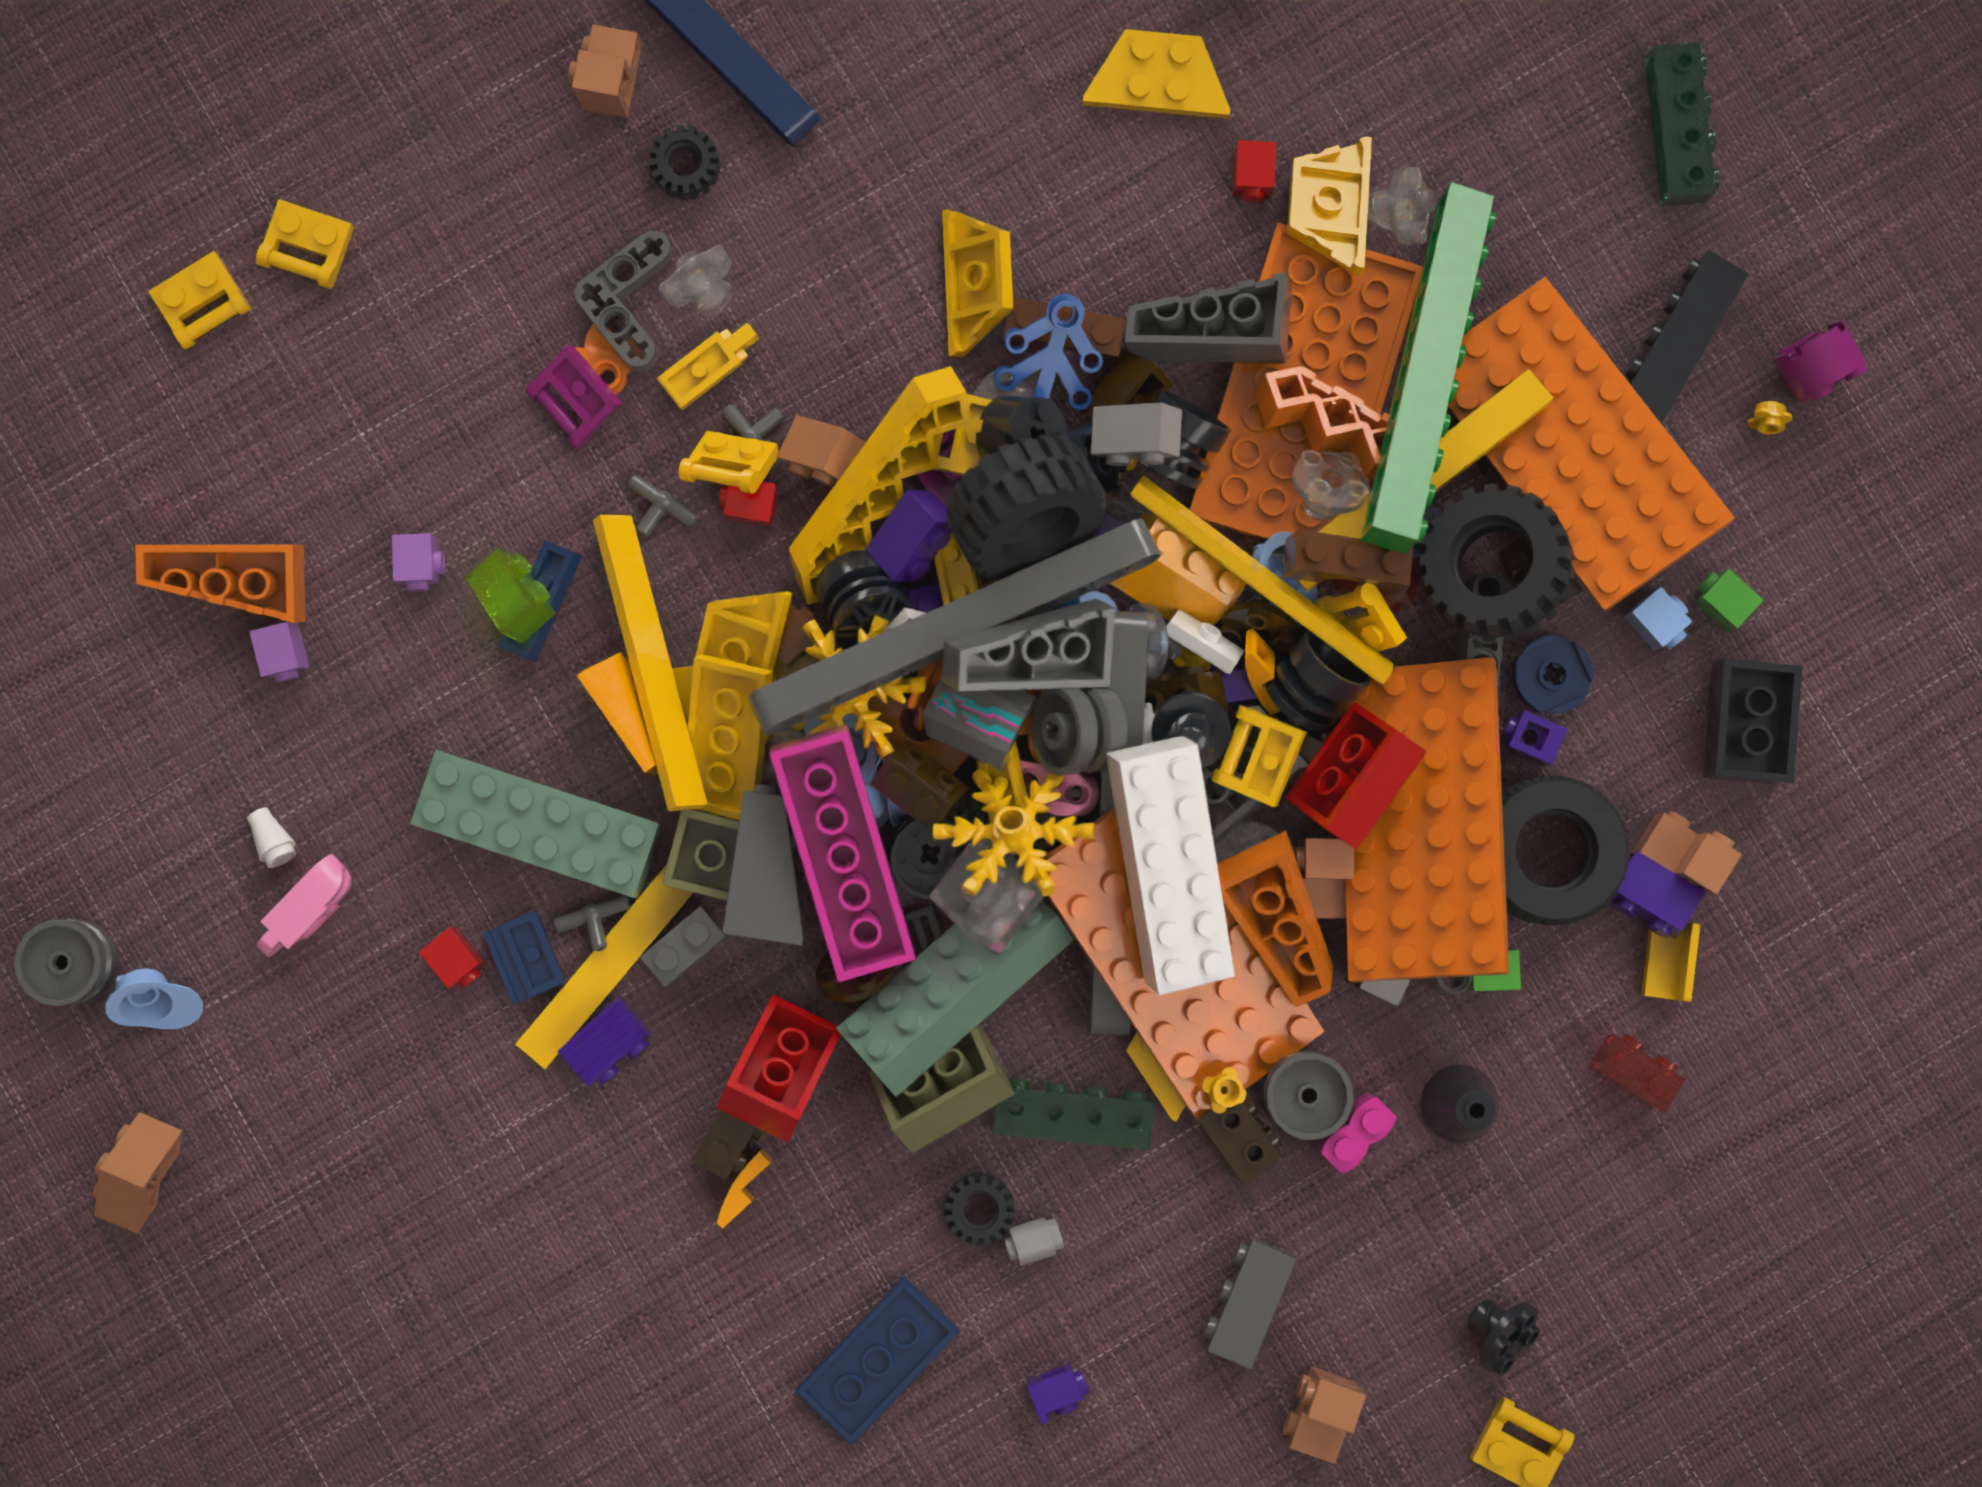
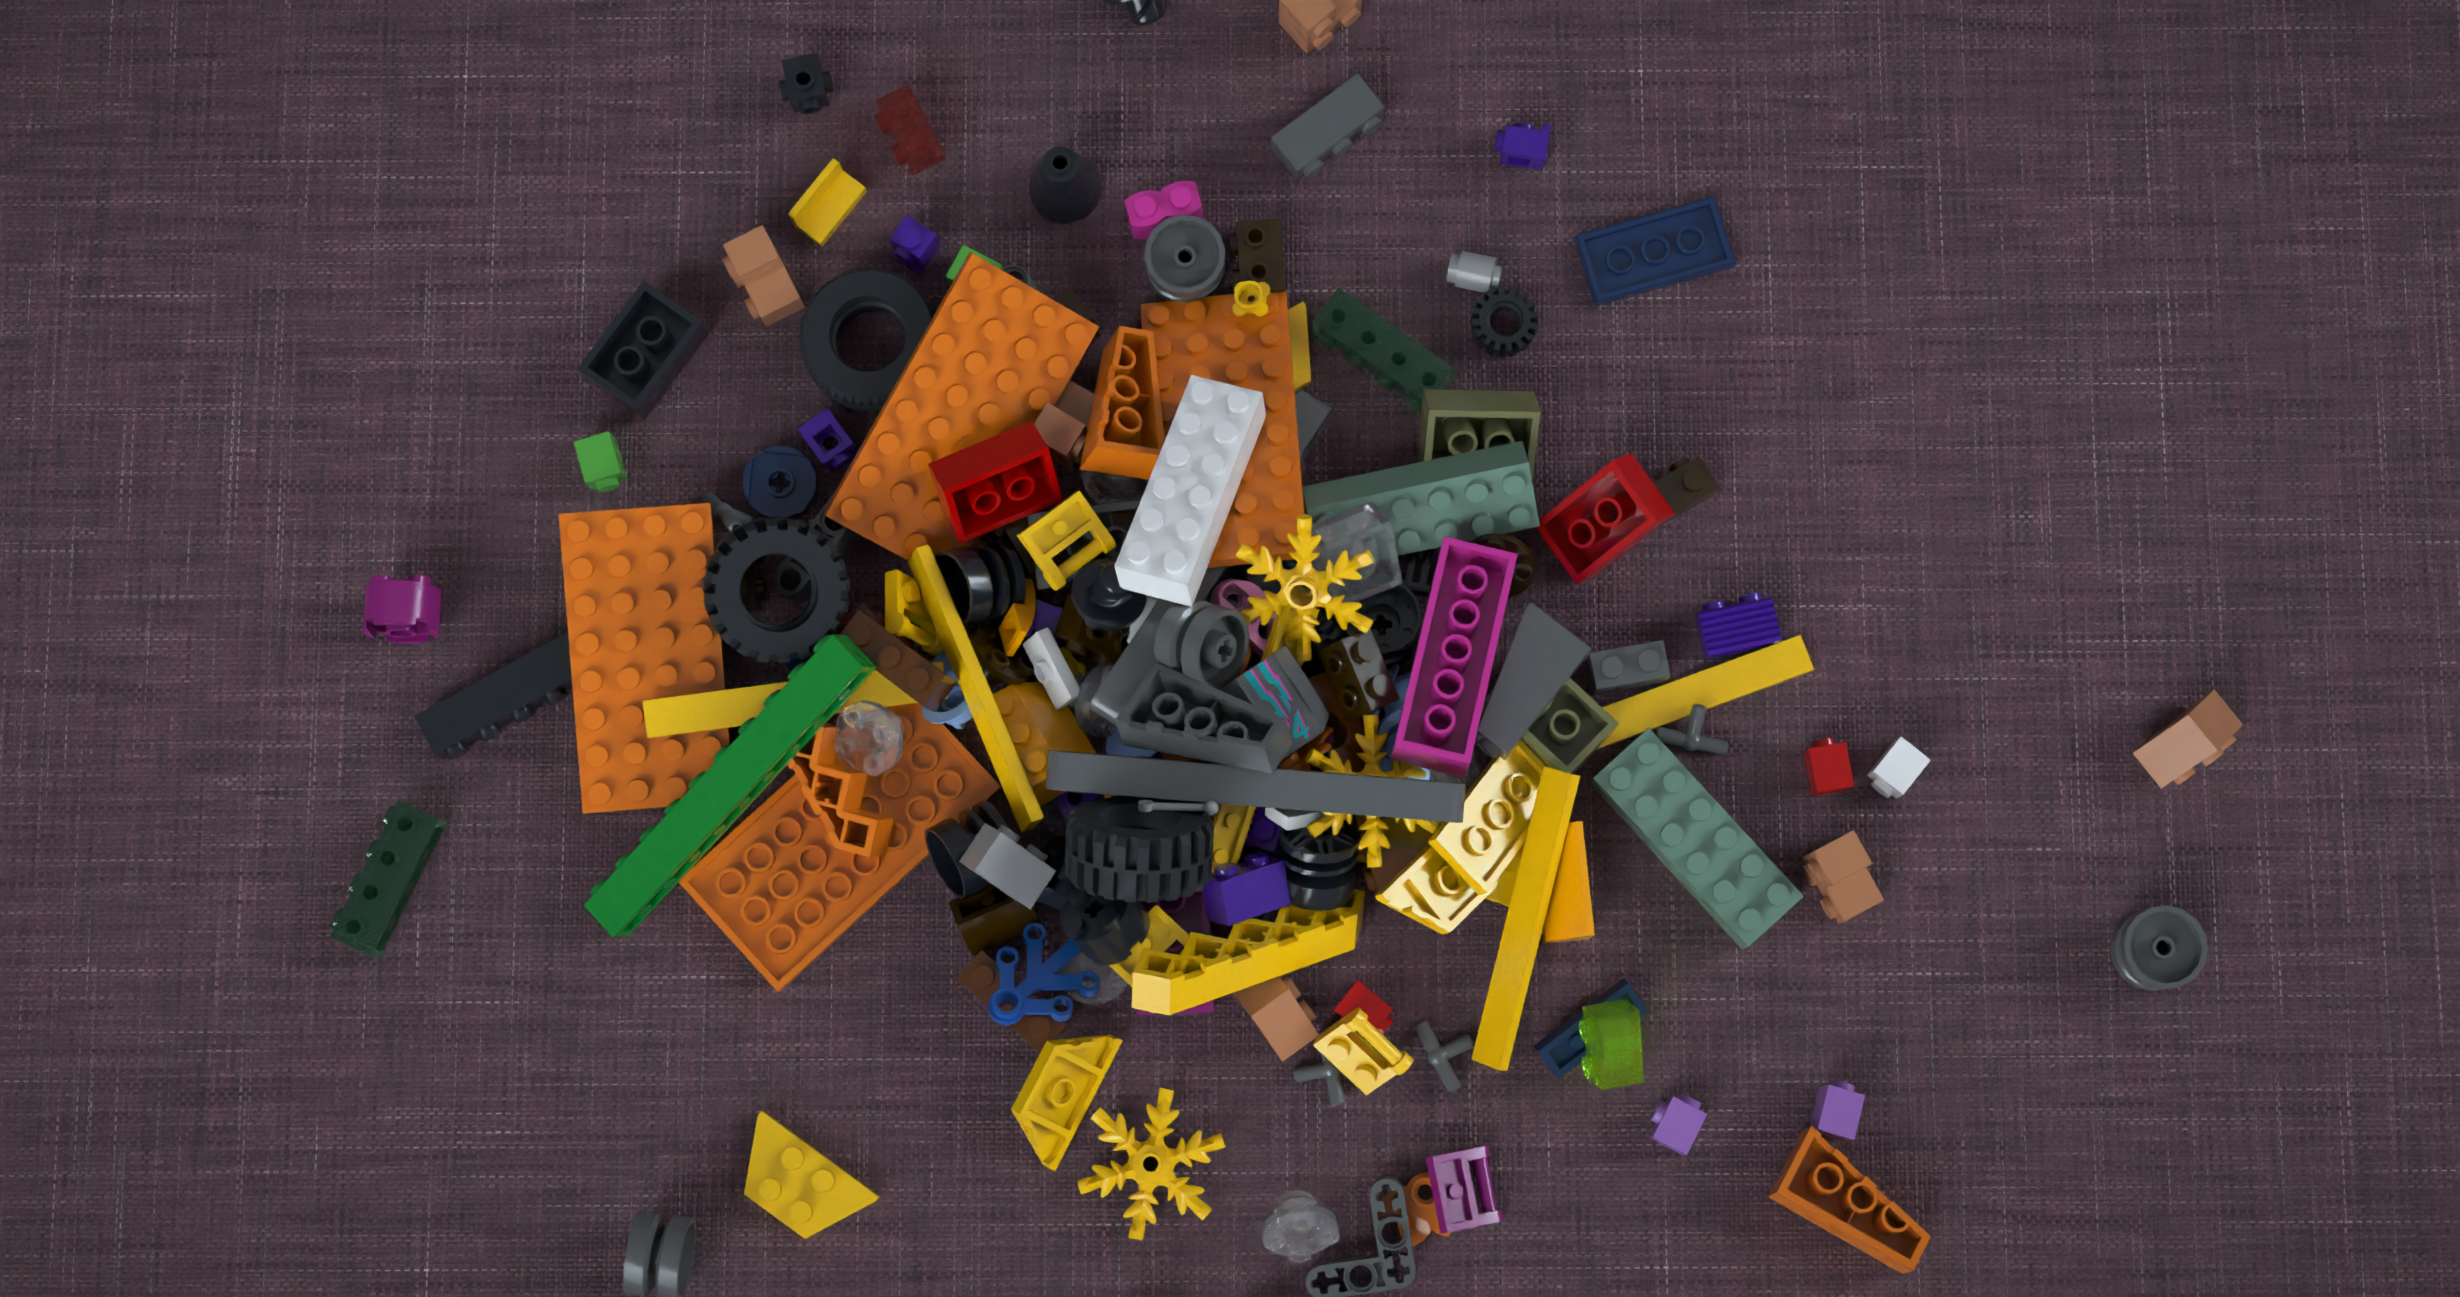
camera: 145 degrees left, 5 degrees down
(150, 1001) = (2103, 877): light blue piece -> none
(271, 840) = (1929, 957): white cone -> none
(305, 906) = (1930, 881): bright pink piece -> none
(386, 866) = (1842, 877): none -> nougat brick
(389, 994) = (1897, 768): none -> white brick
(524, 957) = (1766, 735): dark blue plate -> none
(707, 365) = (1334, 1151): yellow hinge -> none
(738, 1195) = (1696, 441): light orange slope -> none
(862, 276) = (1148, 1180): none -> yellow piece
(1041, 552) = (1210, 807): none -> light grey hinge
(1215, 326) = (876, 924): dark grey wedge -> none
(1254, 170) = (770, 1048): red brick -> none
(1332, 202) = (721, 980): yellow wing -> none
(1403, 206) = (664, 941): clear plate -> none
(1566, 965) = (913, 245): none -> dark purple brick
(1582, 614) = (725, 514): none -> dark grey piece
(1656, 896) = (807, 255): dark purple brick -> none
(1659, 619) = (665, 477): light blue brick -> none
(1760, 1060) = (806, 84): none -> black brick
(1769, 417) = (471, 590): yellow plate -> none

